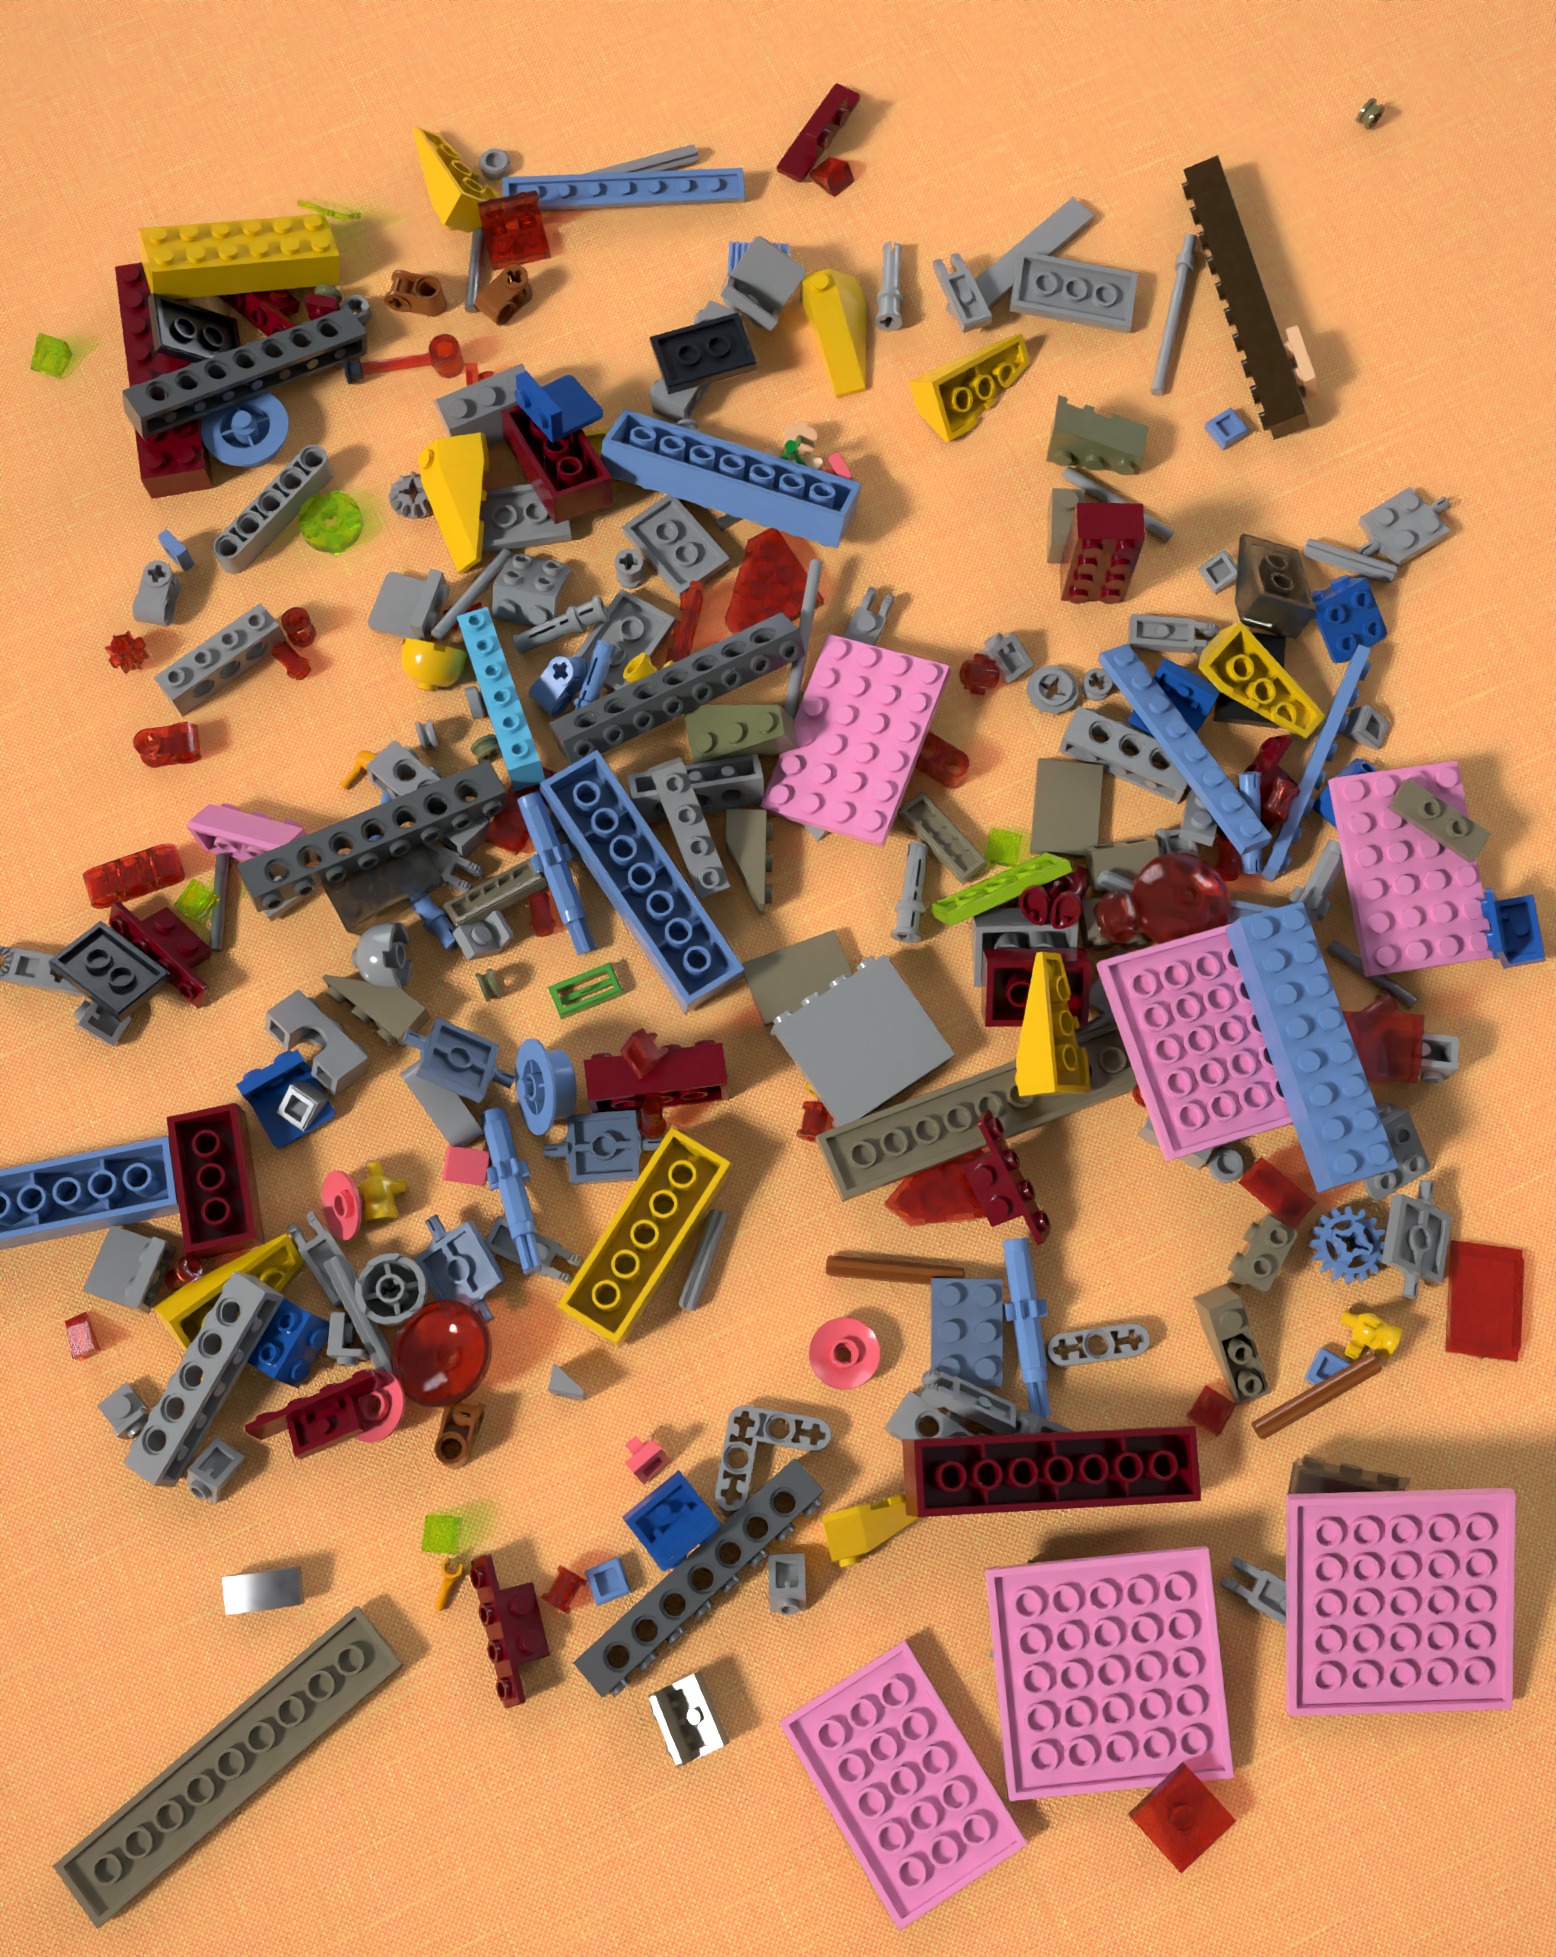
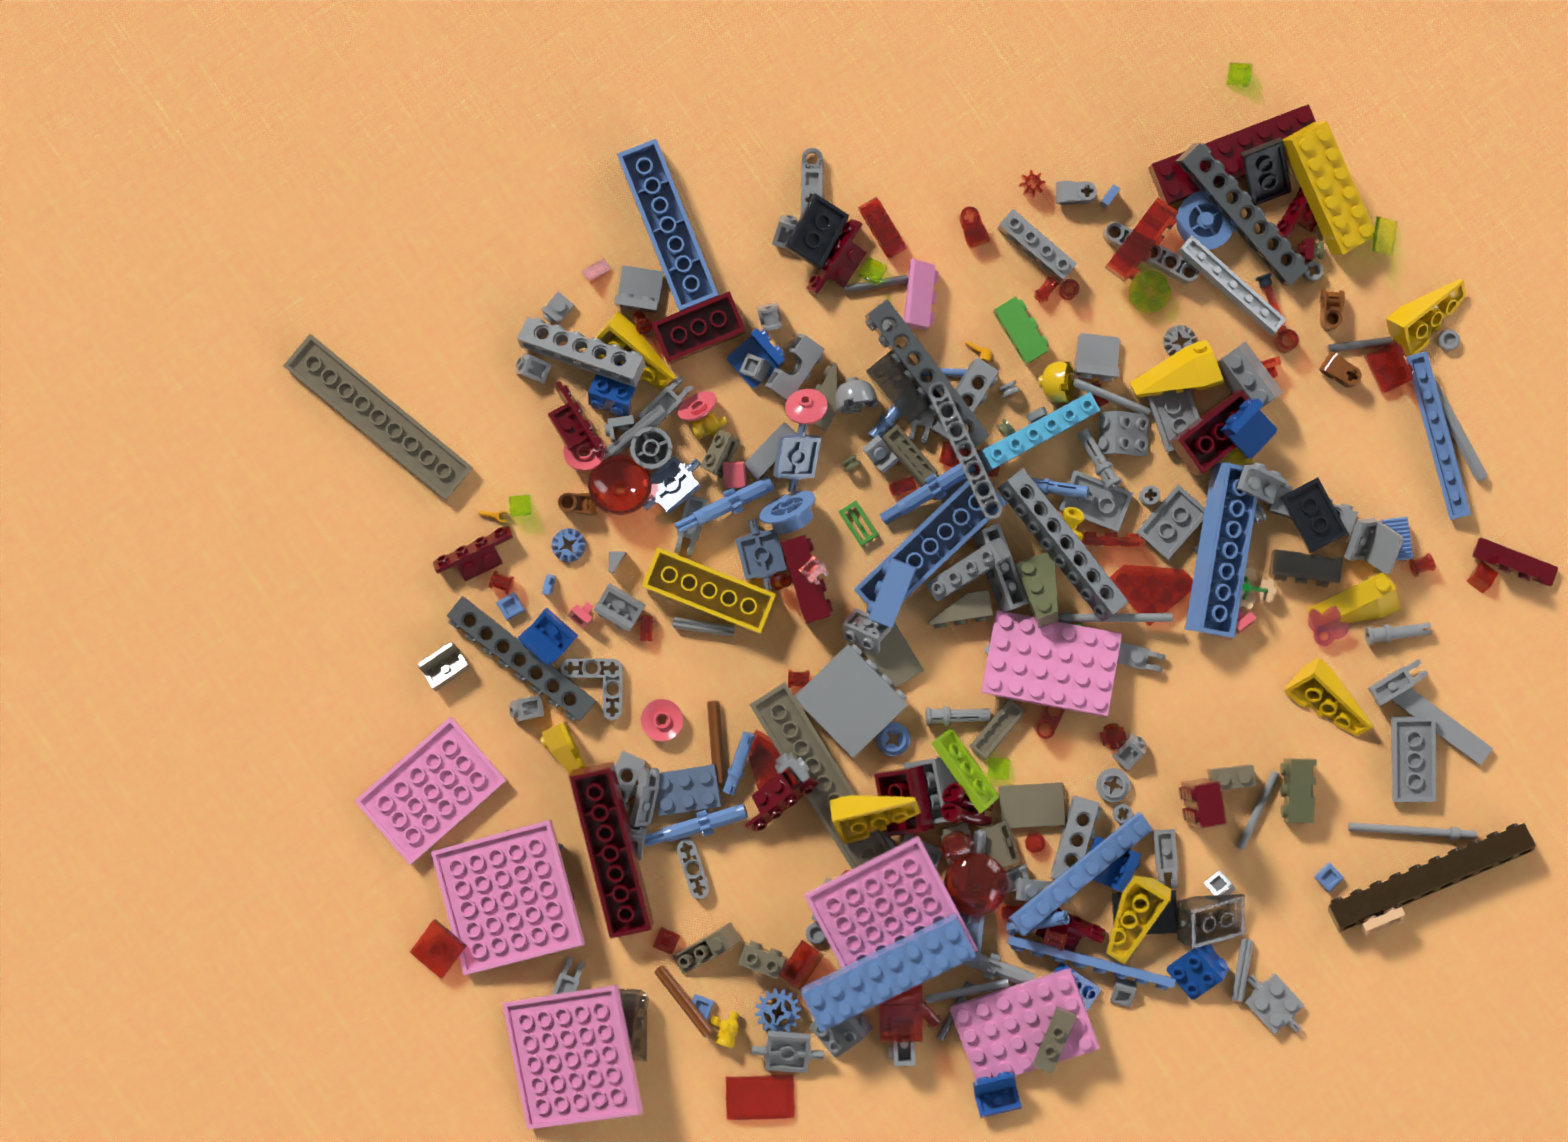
camera: 75 degrees right, 15 degrees up
(225, 1067) = (769, 316): none -> light grey piece
(248, 507) = (1141, 240): none -> clear red brick
(263, 1590) = (471, 412): flat silver slope -> none
(342, 703) = (1021, 330): none -> bright green brick
(346, 404) = (1231, 285): none -> light grey plate
(380, 1028) = (807, 412): none -> coral dish
(425, 1183) = (720, 451): none -> dark tan bracket
(489, 802) = (965, 439): none -> light grey beam
(539, 1469) = (578, 546): none -> medium blue gear
(559, 684) = (1058, 466): medium blue piece -> none
(584, 1507) = (549, 584): none -> medium blue tile
(639, 408) = (1260, 482): none -> light grey bracket
(645, 1392) = (619, 607): none -> light grey bracket
(688, 1353) = (646, 627): none -> clear red pin
(702, 943) = (890, 592): none -> medium blue brick
(755, 1003) = (863, 631): none -> light grey bracket
(777, 379) = (1305, 568): none -> clear smoke wedge
(801, 240) = (1422, 564): none -> clear red bush
(860, 368) = (1329, 623): none -> clear pink plate
(937, 980) = (903, 739): none -> medium blue gear
(948, 1146) = (797, 765): none -> light grey bracket
(948, 1246) = (738, 763): none -> medium blue pin
(1124, 814) = (1034, 842): none -> clear red tile
(1344, 945) = (967, 991): none -> light grey bar

